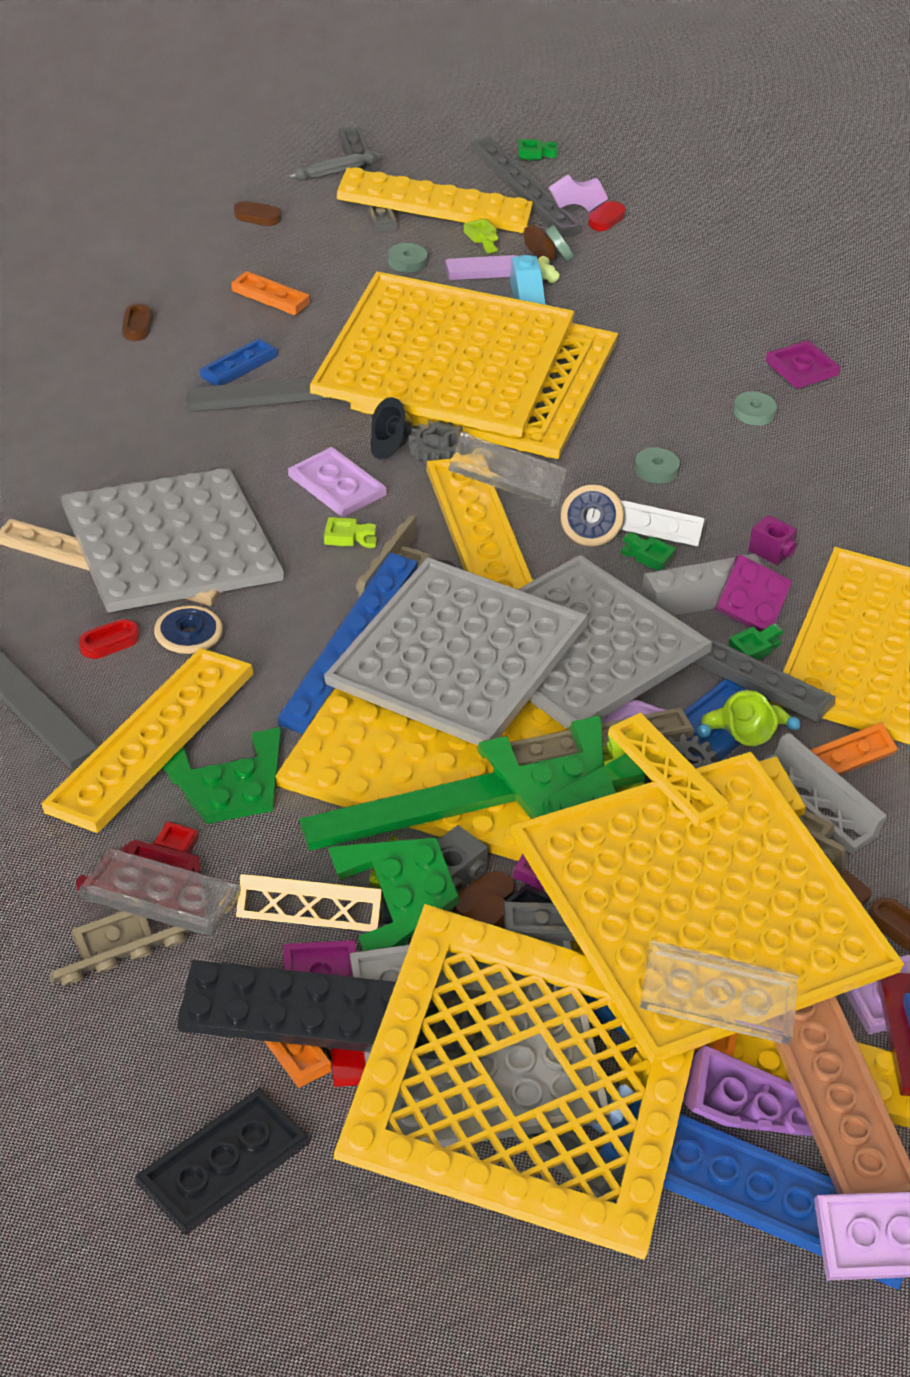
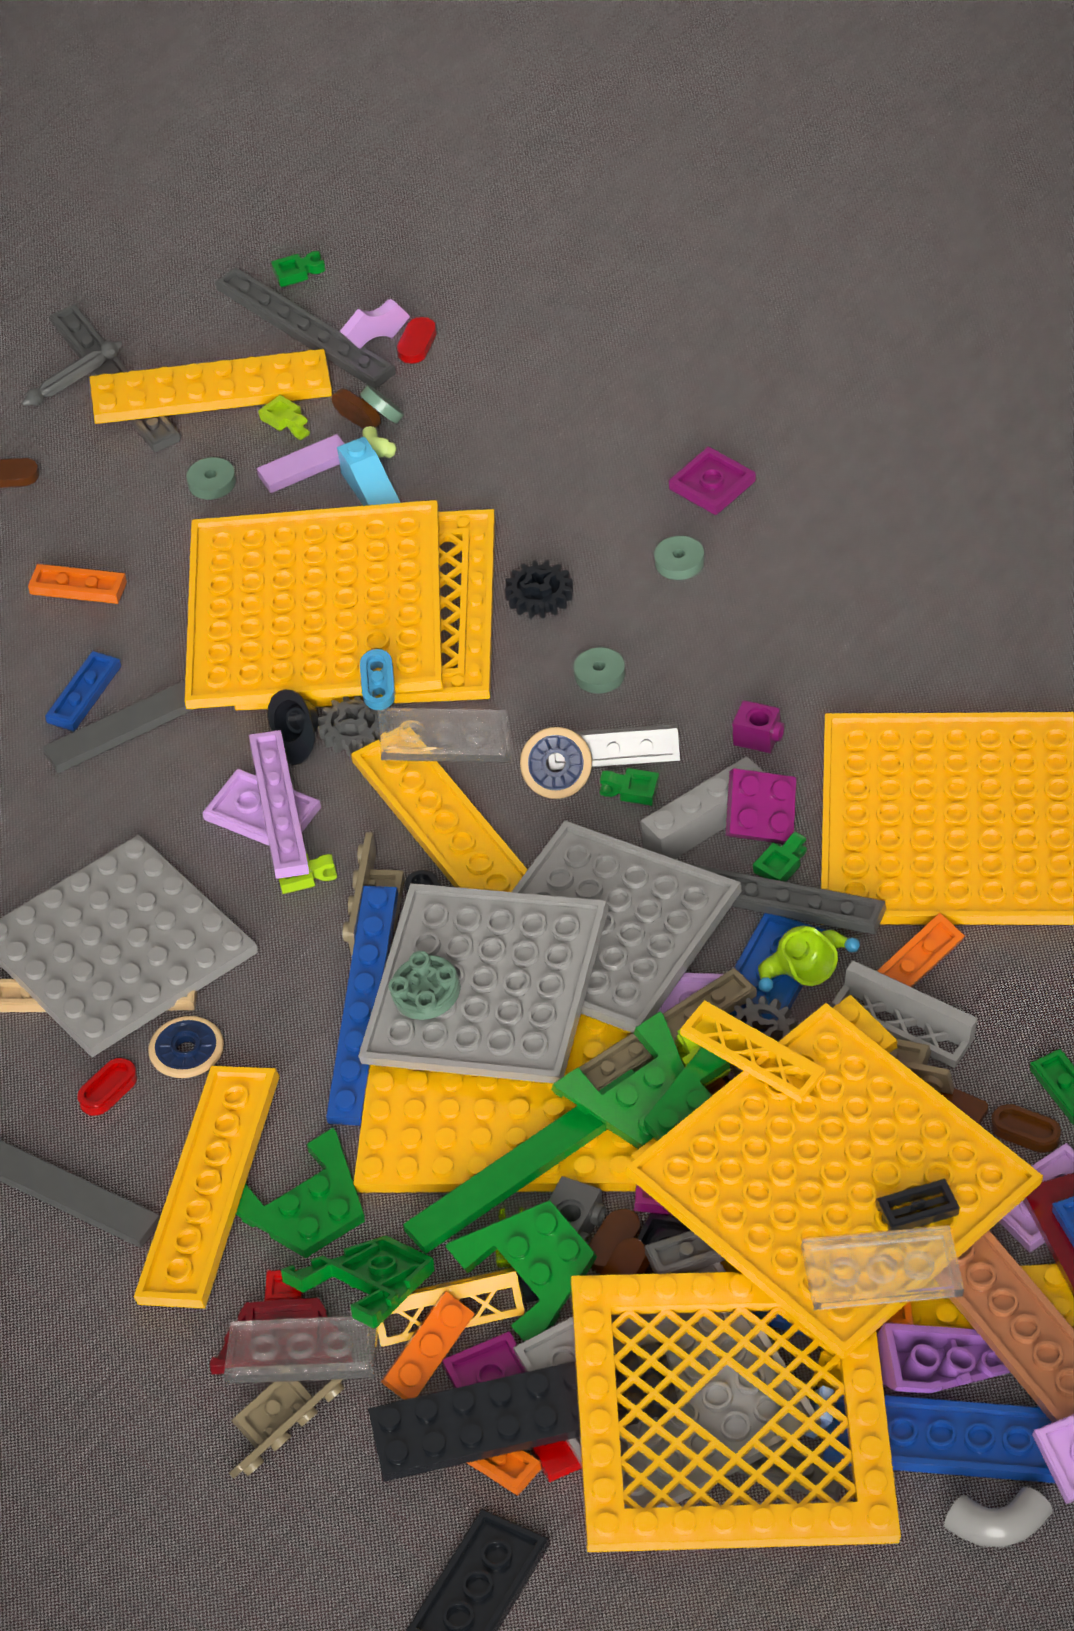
camera: 10 degrees left, 5 degrees up
(260, 850) = (377, 1267): none -> green wing
(275, 928) = (427, 1347): none -> orange plate
(349, 478) = (278, 804): none -> lavender plate
(403, 636) = (425, 986): none -> sand green tile
(469, 410) = (377, 682): none -> dark azure plate
(630, 395) = (539, 589): none -> black gear
(750, 1278) = (999, 1525): none -> light grey cylinder
(774, 955) = (921, 1211): none -> black tile

